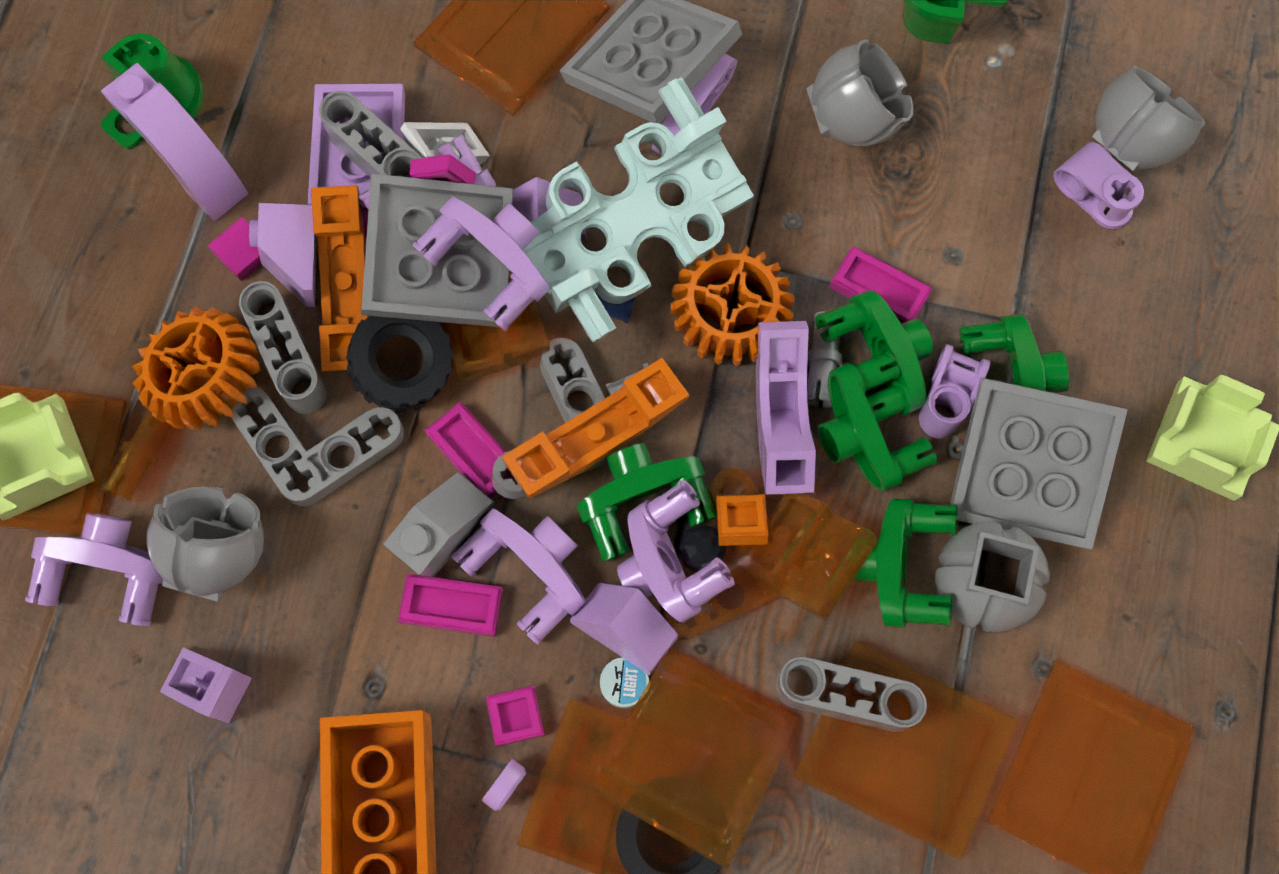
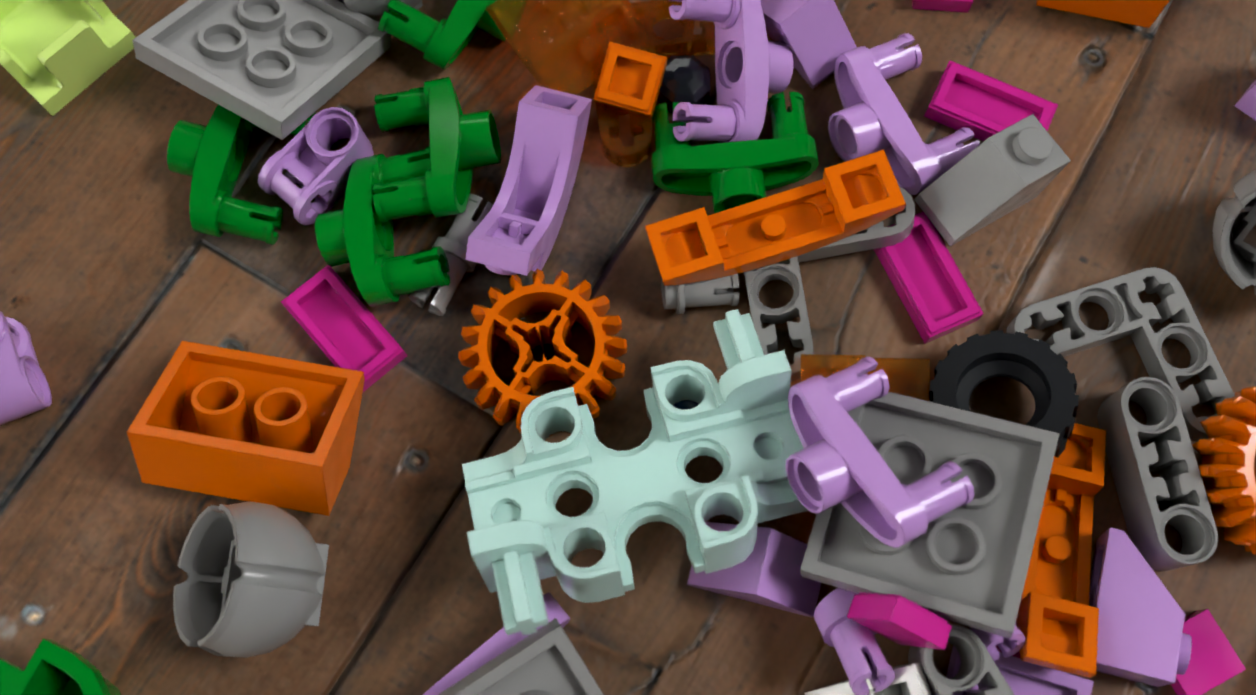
camera: 160 degrees left, 0 degrees up
(909, 196) = (249, 427): none -> orange slope

